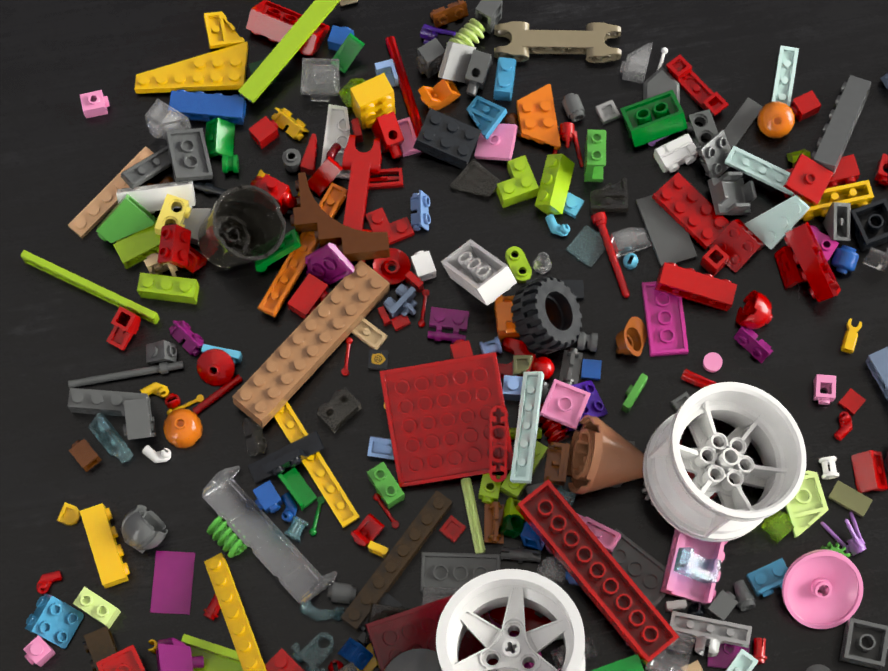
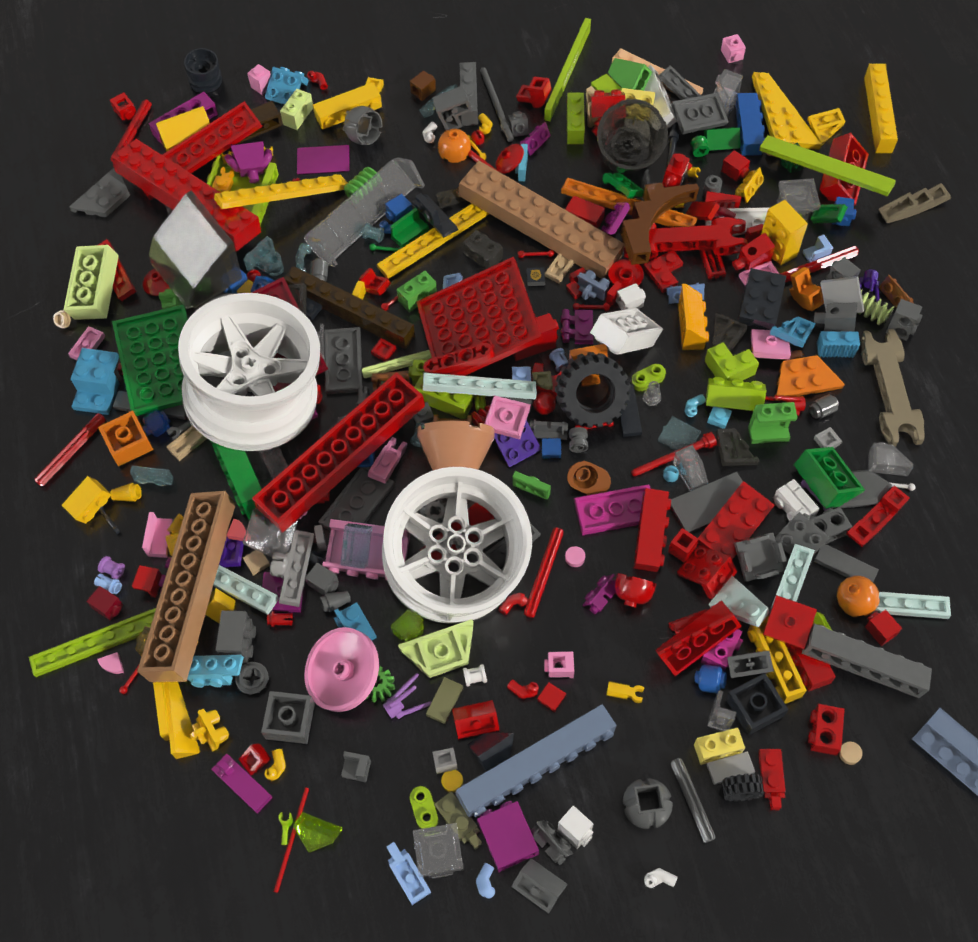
camera: 85 degrees right, 10 degrees down
(459, 210) = (692, 319): none -> light orange slope

